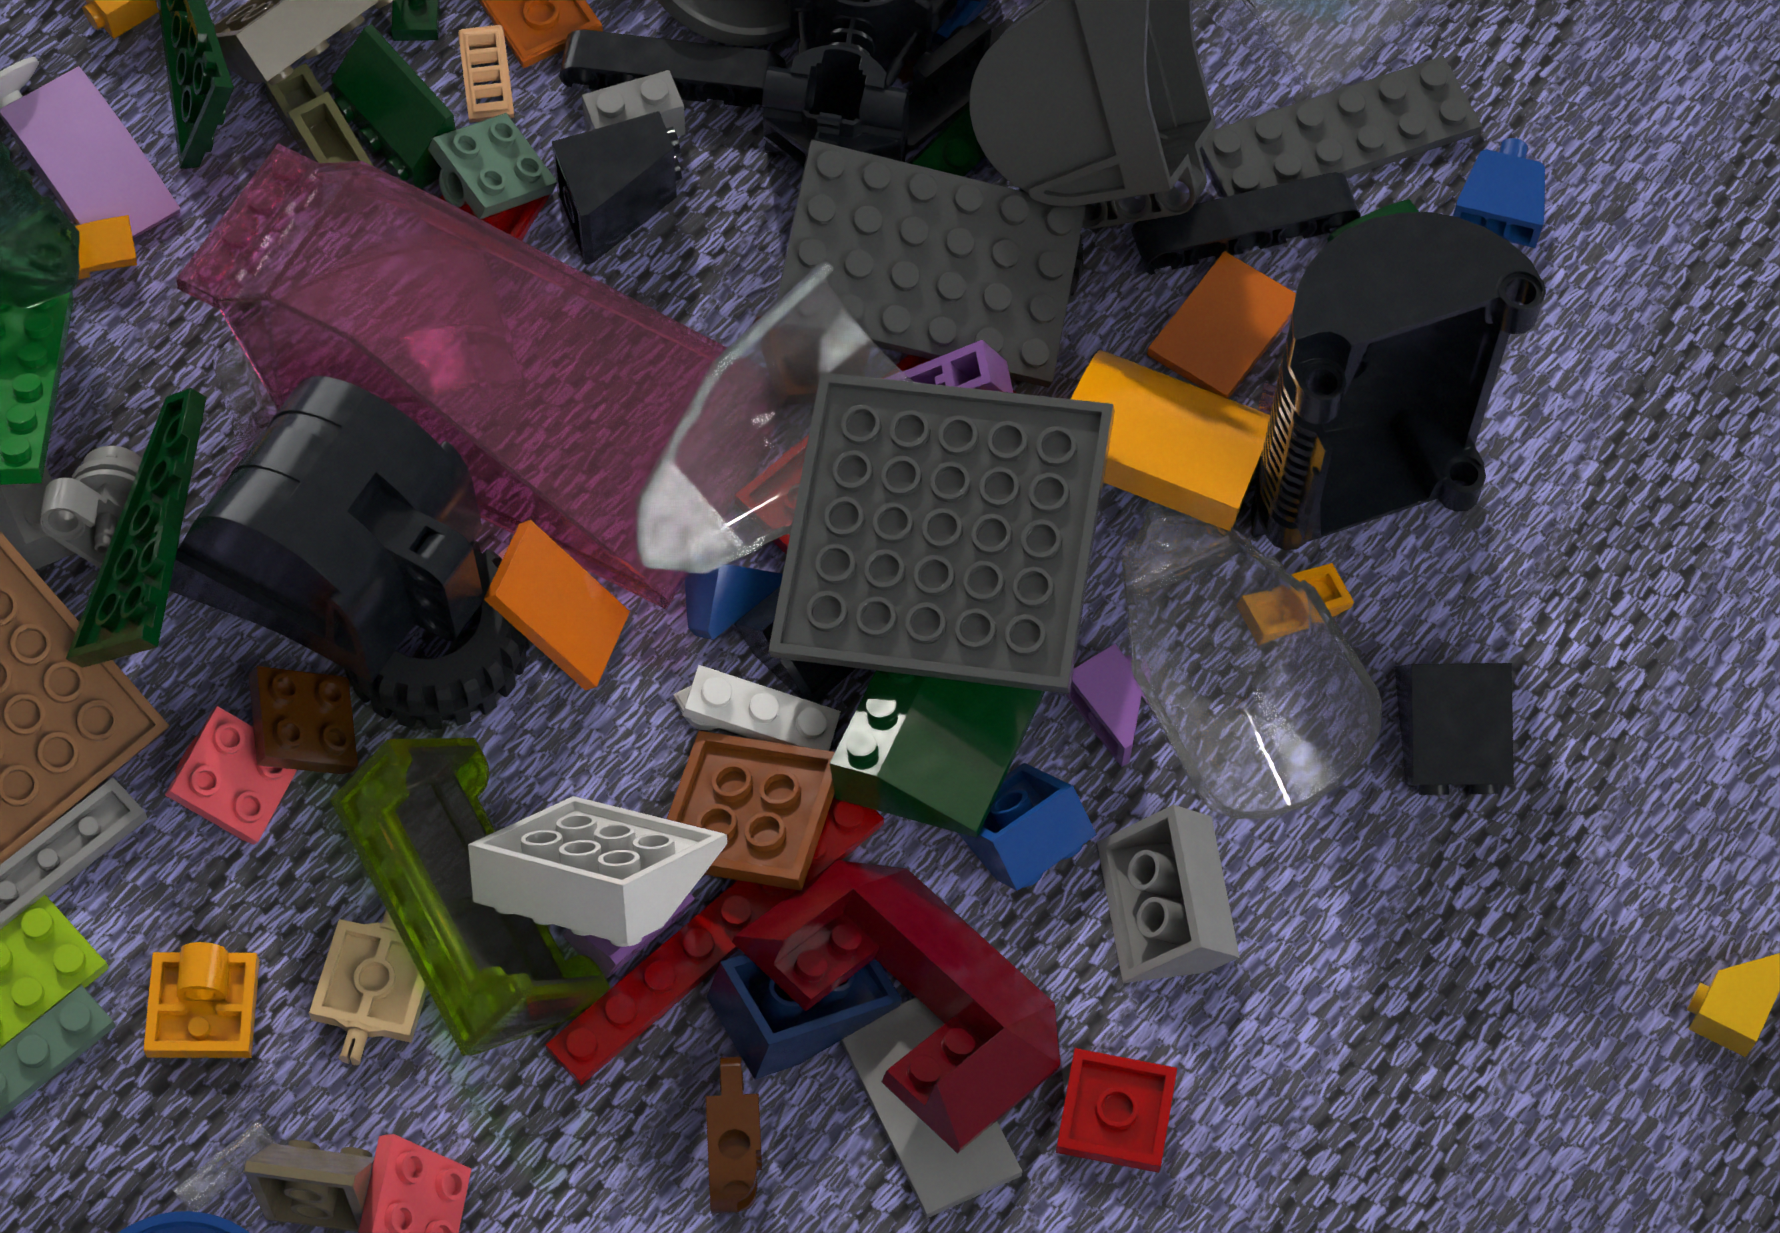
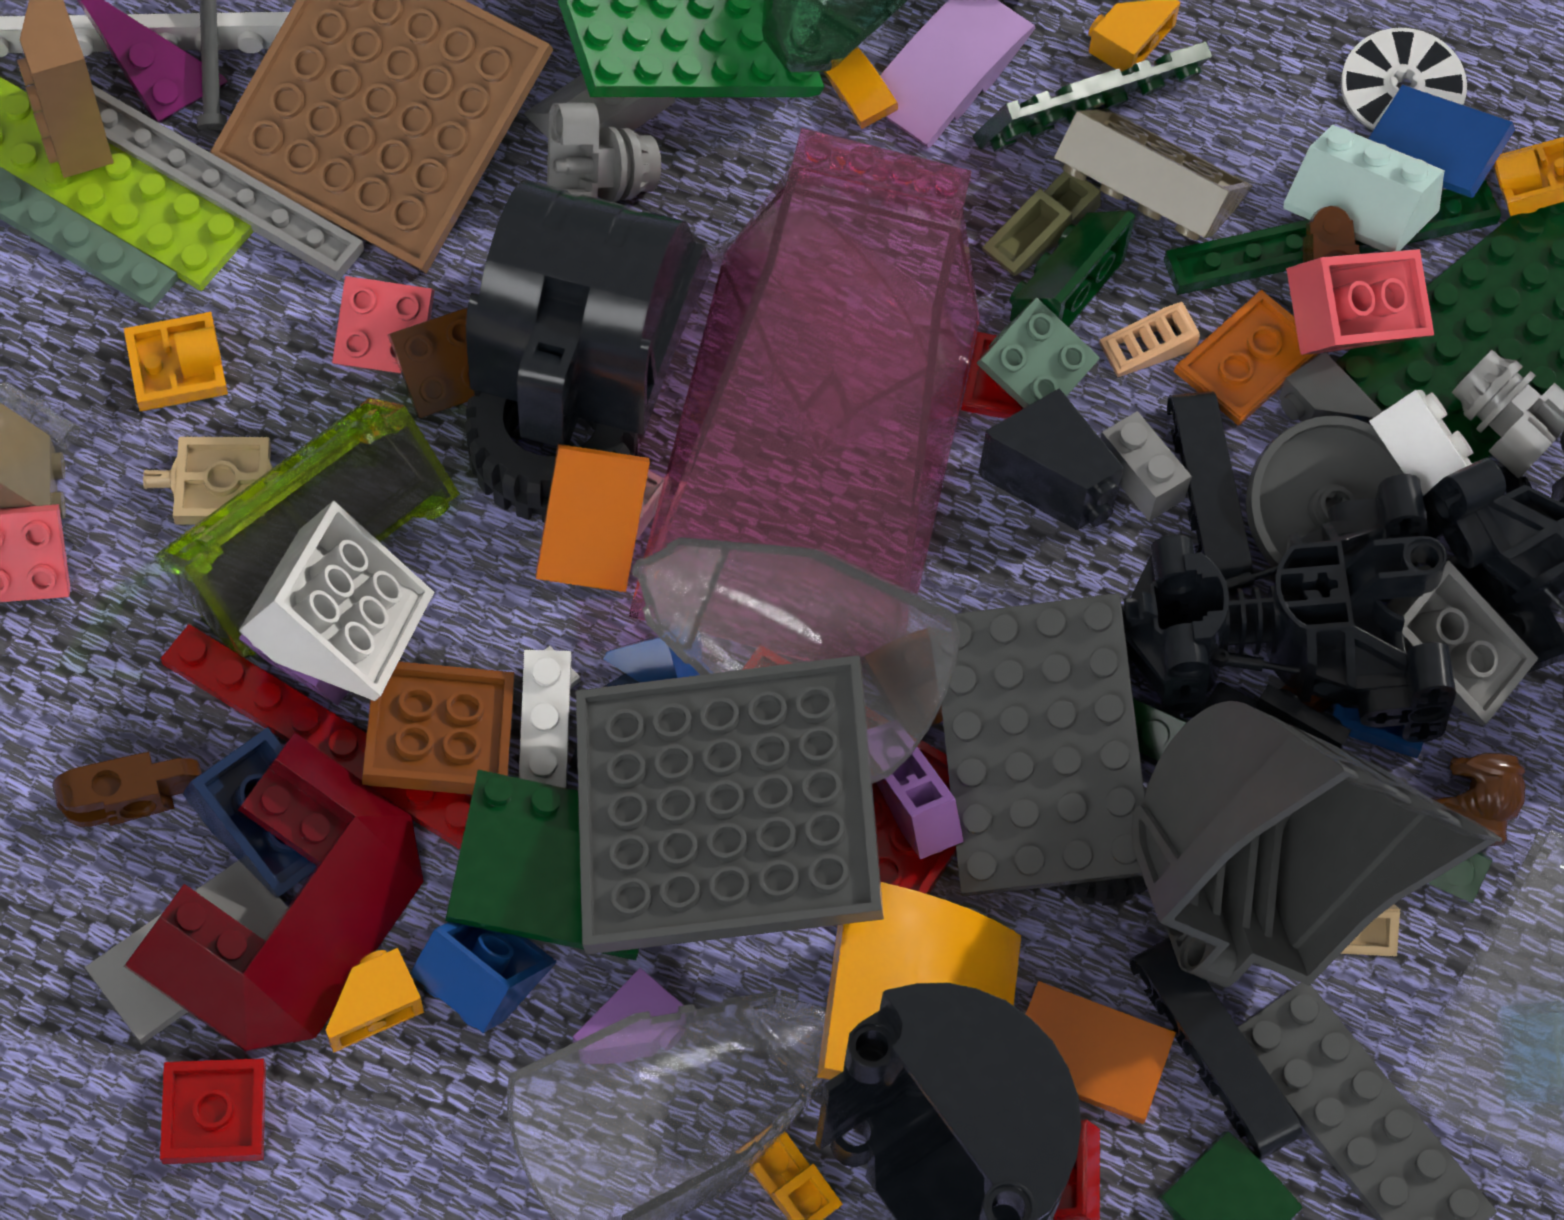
camera: 75 degrees right, 0 degrees up
(136, 573) = (499, 181): dark green wing -> none
(1032, 932) = (373, 999): none -> light orange slope
(1167, 896) = (435, 1116): light grey slope -> none

